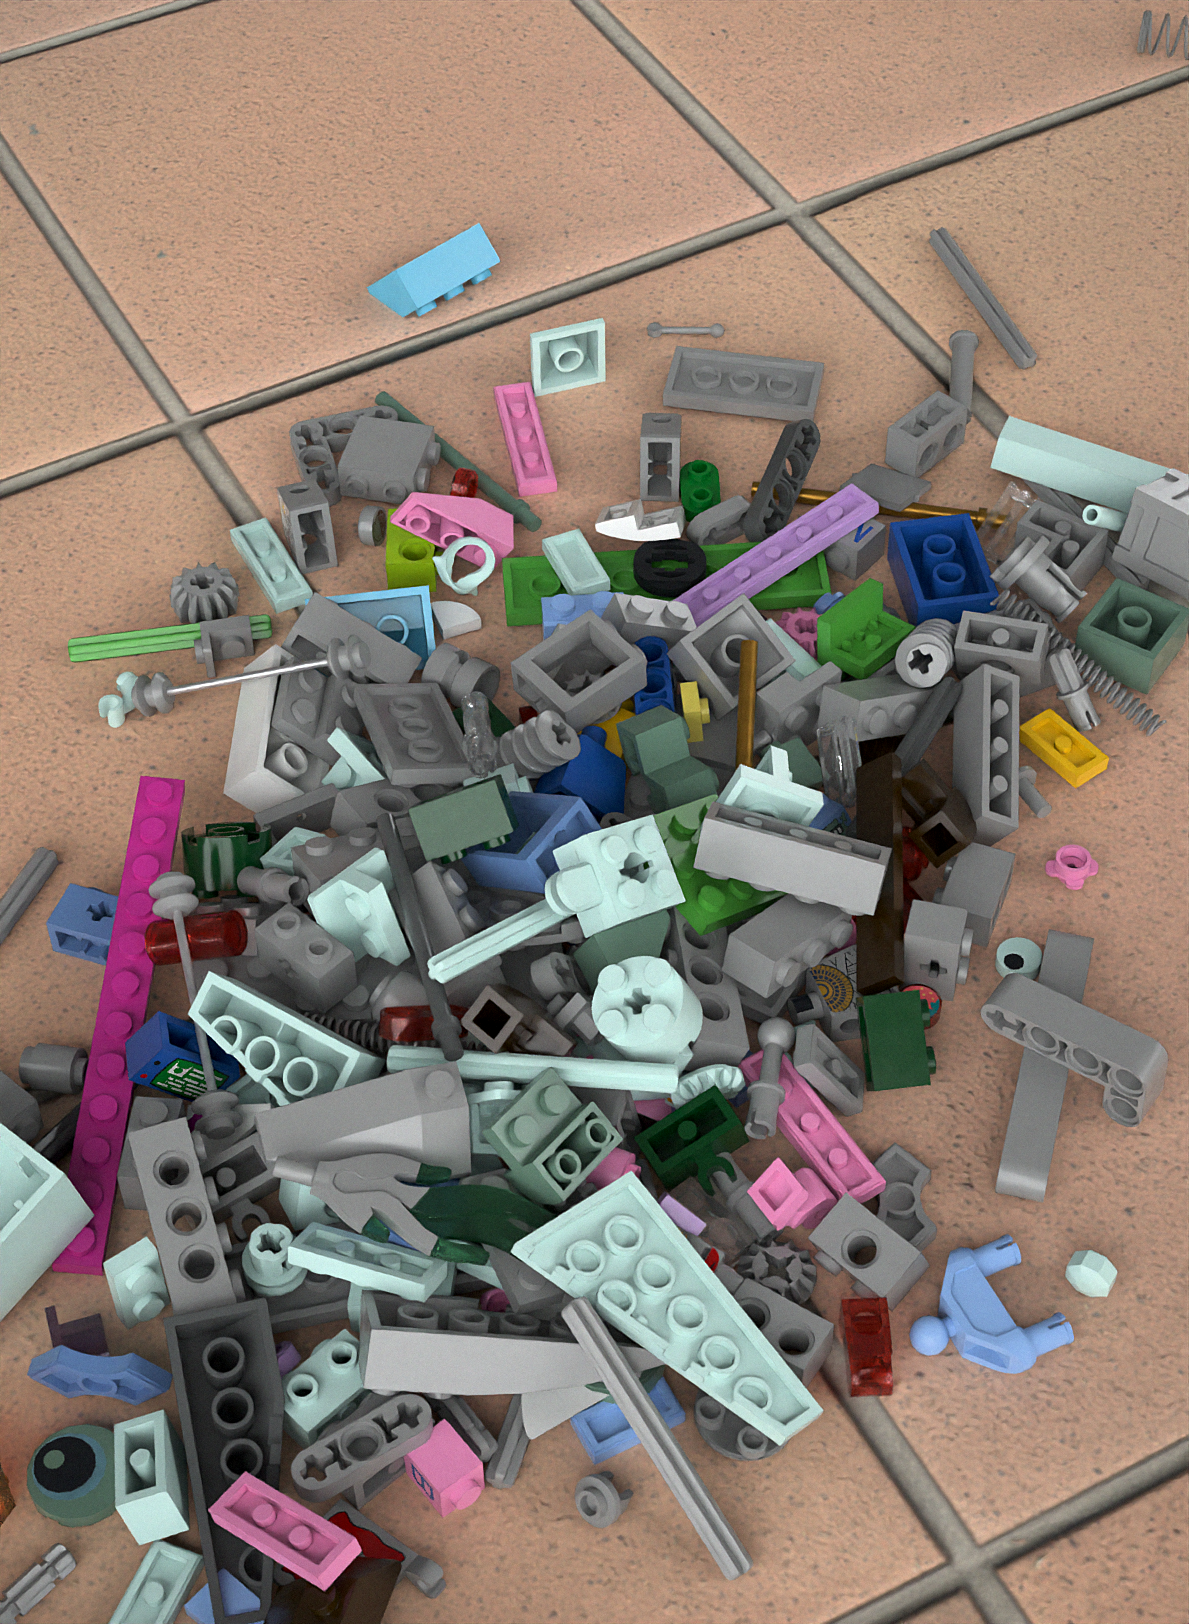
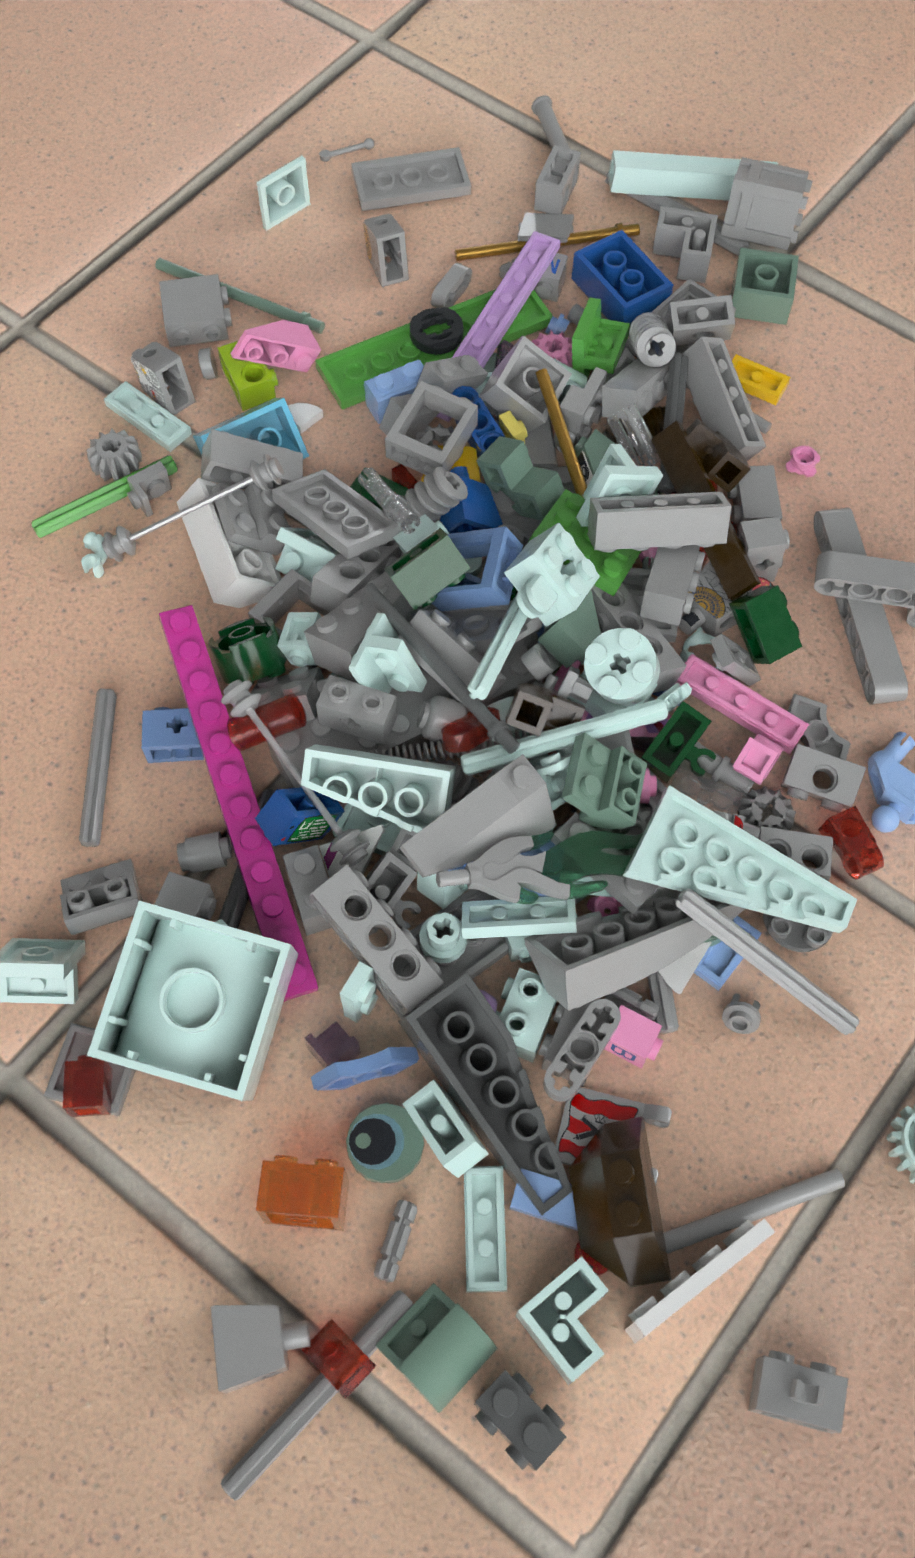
camera: 25 degrees left, 15 degrees up
(273, 885) = (302, 663): light grey pin -> none
(285, 1530) = (569, 1134): bright pink plate -> none
(325, 442) = (138, 309): light grey beam -> none
(437, 273) = (149, 155): medium azure slope -> none
(460, 674) = (339, 460): light grey wheel -> none
(464, 483) = (258, 312): clear red tile -> none
(469, 583) = (301, 382): light aqua piece -> none
(525, 439) = (278, 264): bright pink tile -> none
(575, 563) = (371, 348): light aqua tile -> none
(630, 522) = (405, 304): white slope -> none
(681, 1214) = (707, 801): lavender tile -> none
(699, 487) = (422, 268): green plate -> none
(765, 1095) = (694, 651): light grey pin -> none
(799, 445) = (480, 244): dark grey beam -> none
(983, 298) = (536, 69): light grey axle -> none
(1019, 957) = (803, 538): light aqua tile -> none
(1022, 499) = (646, 210): clear tile -> none
(1038, 577) = (686, 258): light grey piece -> none
(1072, 689) = (749, 338): light grey axle -> none
(1087, 667) = (746, 321): light grey piece -> none
(1104, 517) = (715, 206): light aqua piece -> none

